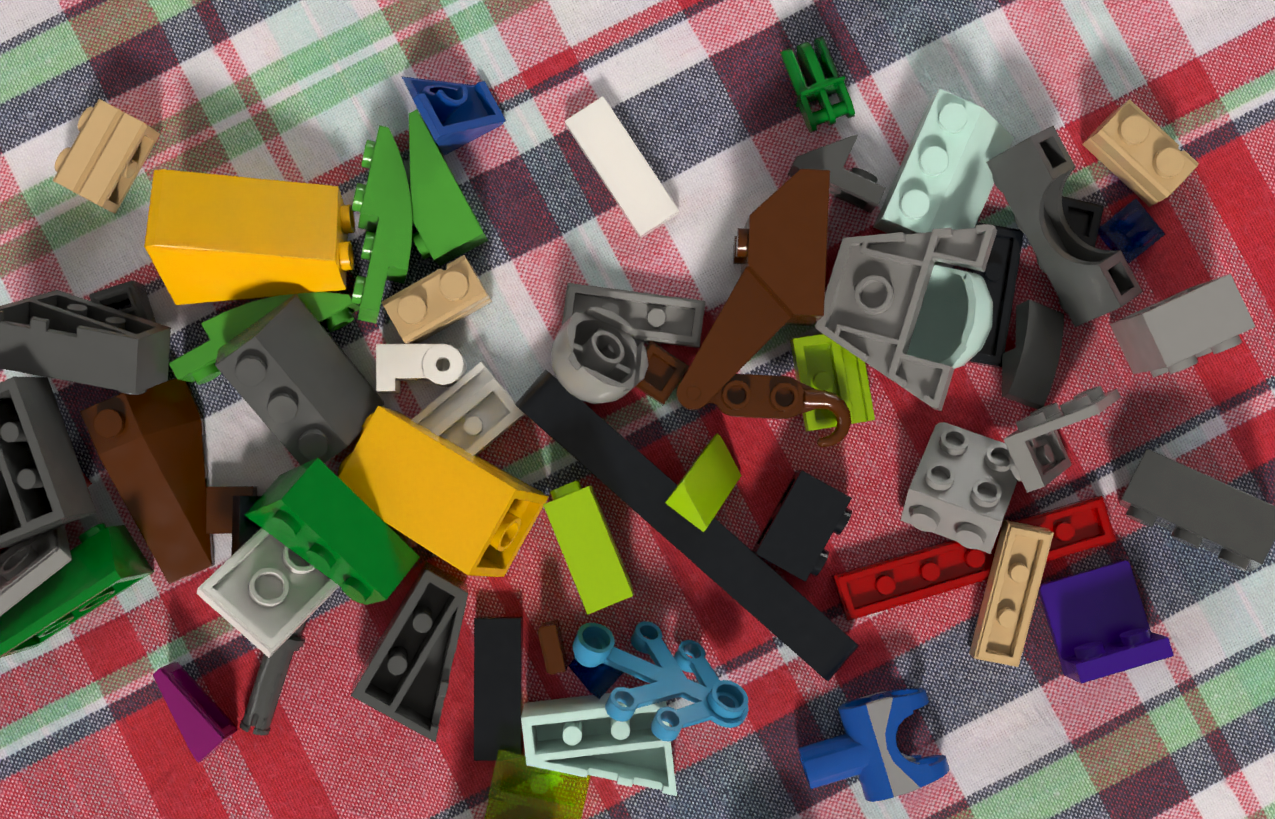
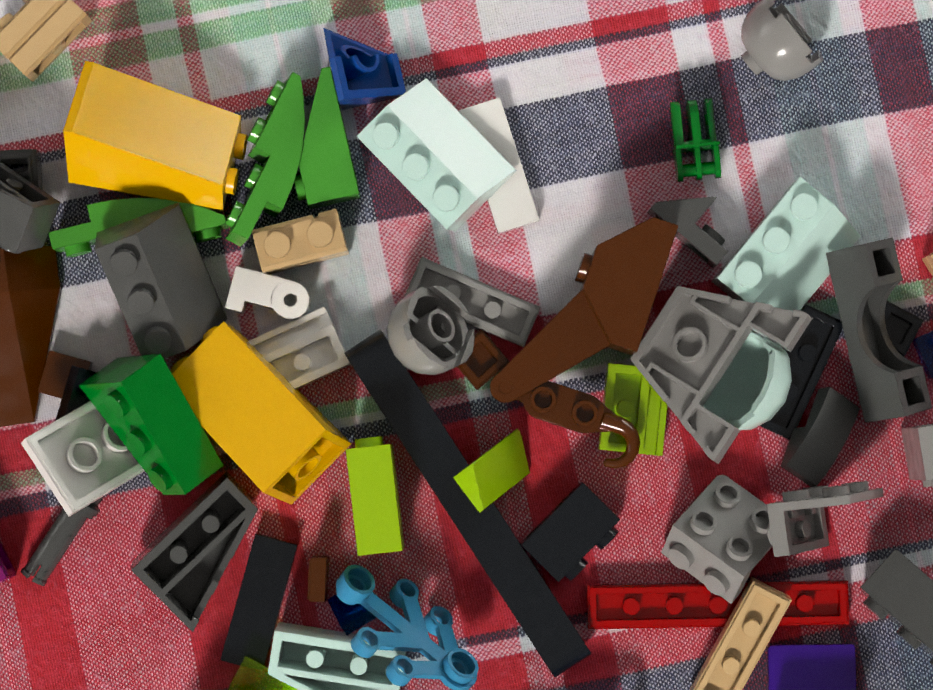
camera: 20 degrees right, 0 degrees up
(553, 170) = (436, 154): none -> light aqua slope

